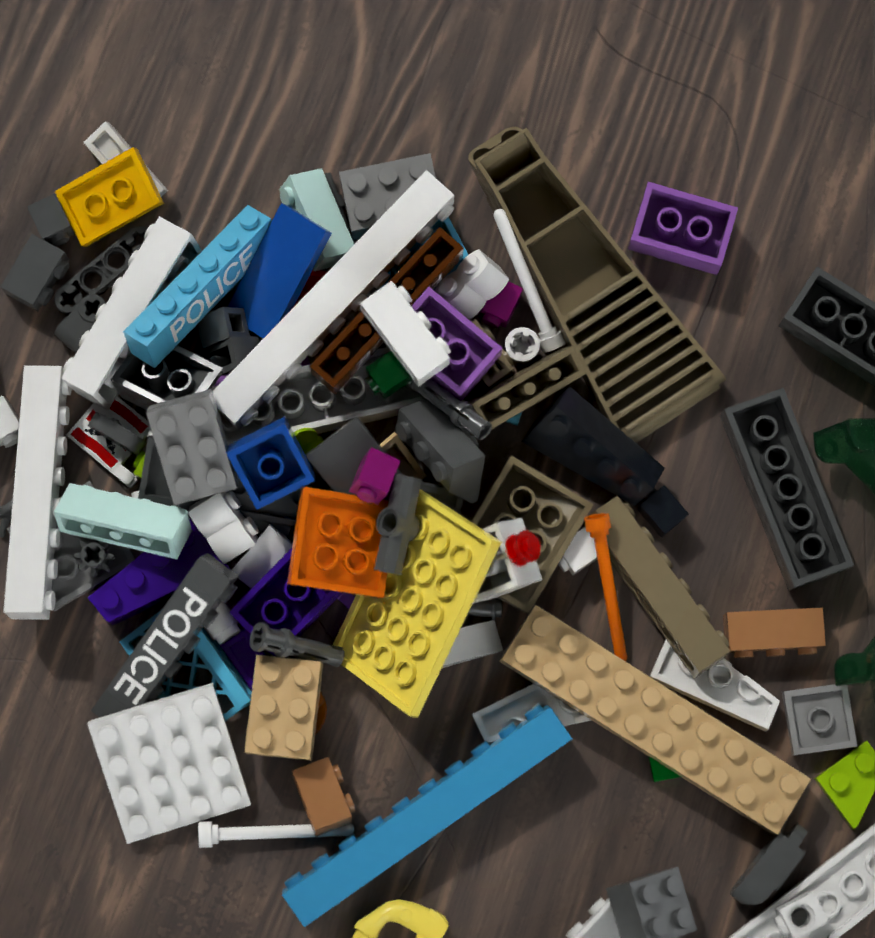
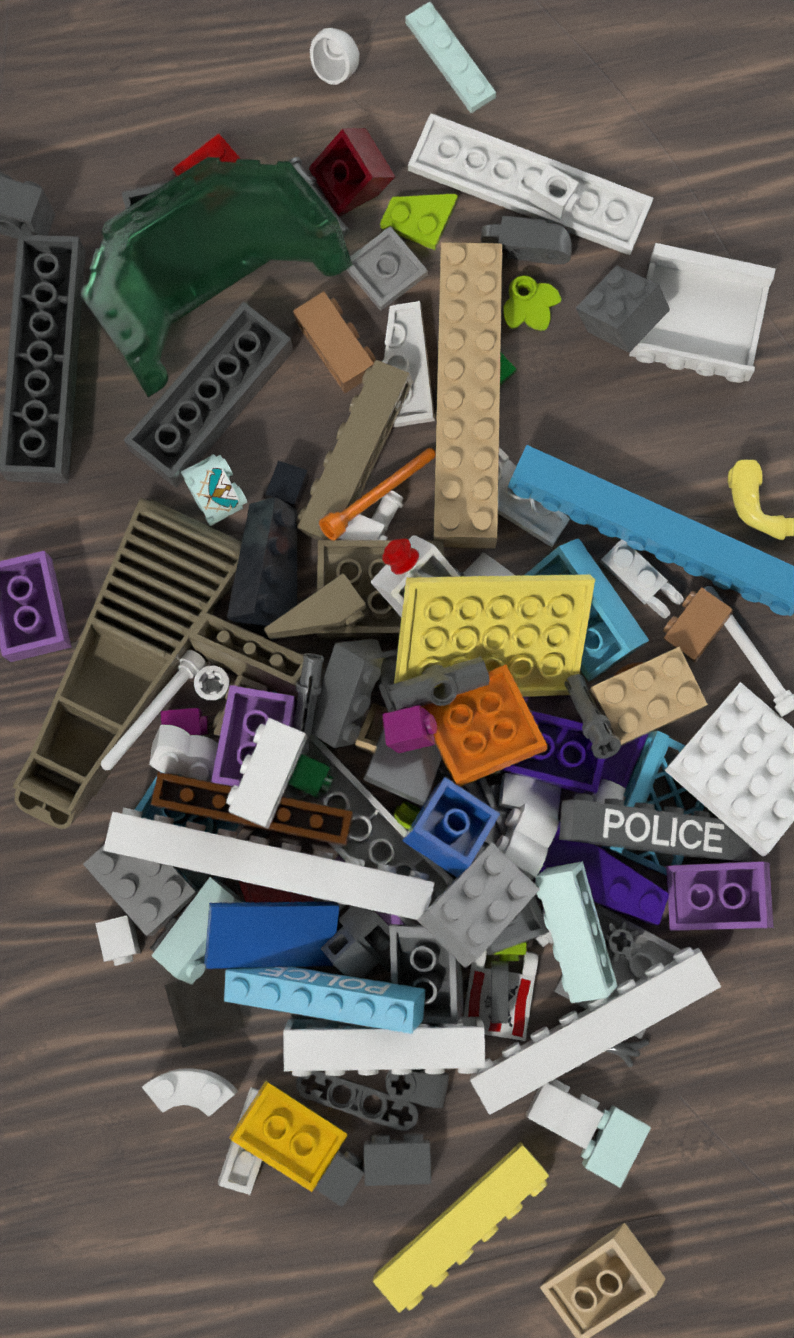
camera: 115 degrees left, 0 degrees up
(79, 668) = (720, 896): none -> medium lavender slope
(196, 142) = (190, 1087): none -> white brick
(253, 184) = (201, 1008): none -> clear smoke tile
(351, 149) = (118, 940): none -> white brick
(368, 717) = (611, 628): none -> medium azure slope
(398, 775) = (640, 577): none -> white hinge
(523, 477) = (325, 610): none -> dark tan slope
(590, 586) = (387, 508): none -> white pin
(695, 442) = (212, 488): none -> light aqua brick
(705, 833) = (532, 308): none -> lime plate

